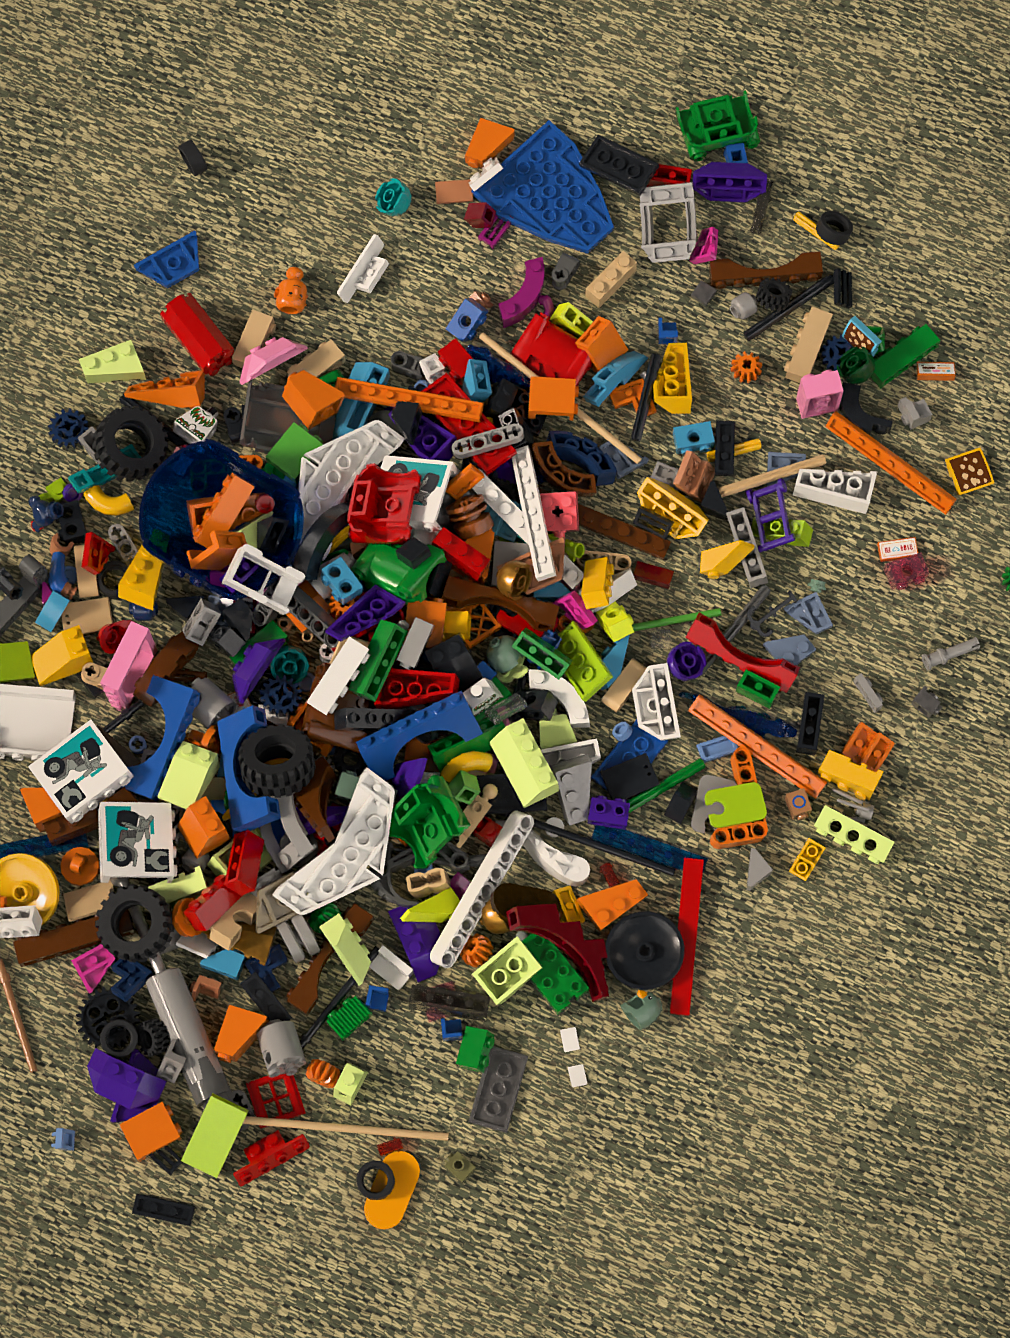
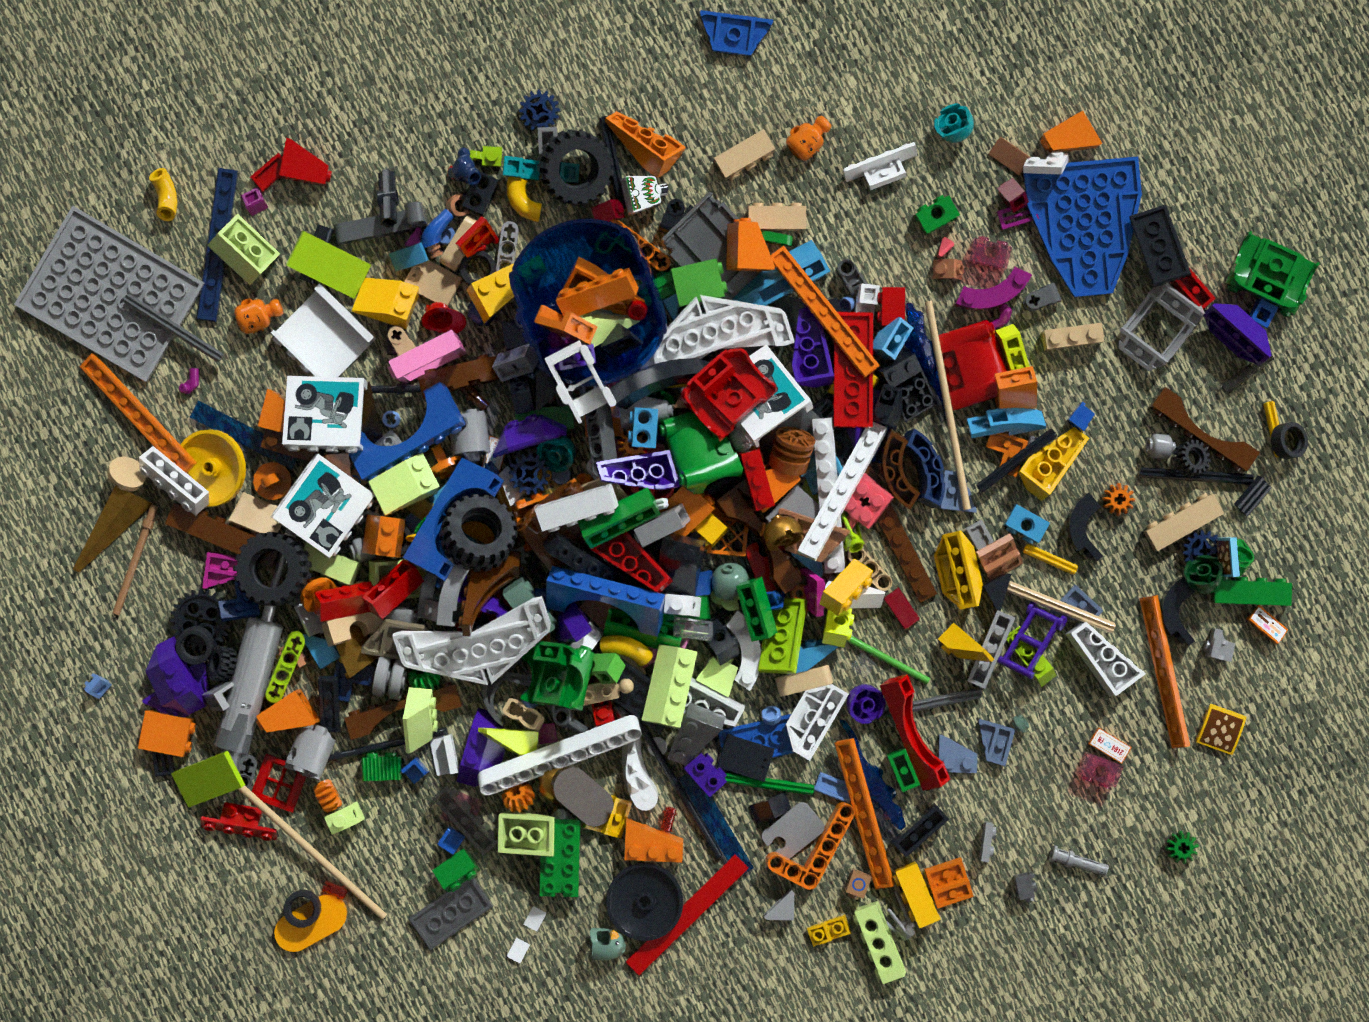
camera: 40 degrees right, 15 degrees up
(70, 494) = (497, 168): dark purple tile -> none
(113, 364) = (617, 84): yellowish green wedge -> none
(163, 1210) = (131, 798): black tile -> none
(198, 334) = (703, 115): red brick -> none
(203, 996) = (286, 667): none -> lime beam
(268, 357) = (741, 181): bright pink wedge -> none
(407, 419) = (808, 329): black slope -> none
(413, 553) = (717, 453): black piece -> none
(435, 262) = (948, 213): none -> green brick
(458, 324) = (938, 276): brick -> none
(459, 1167) = (373, 948): olive brick -> none
(460, 289) = (945, 246): none -> coral slope
(464, 481) = (810, 420): orange plate -> none
(486, 437) = (855, 403): light grey beam -> none
(493, 278) = (978, 256): none -> clear pink brick
(553, 397) = (939, 403): orange panel -> none
(568, 936) = (595, 846): dark red arch -> none
(655, 520) = (938, 567): black tile -> none
(703, 293) = (1138, 407): flat silver tile -> none
(706, 246) = (1173, 372): dark pink wing -> none
(724, 448) = (1043, 553): black tile -> none
(734, 411) = (1076, 526): none -> black arch
(741, 804) = (812, 851): lime piece -> none
(755, 625) = (946, 715): black piece -> none
(819, 393) = (1155, 574): bright pink brick -> none

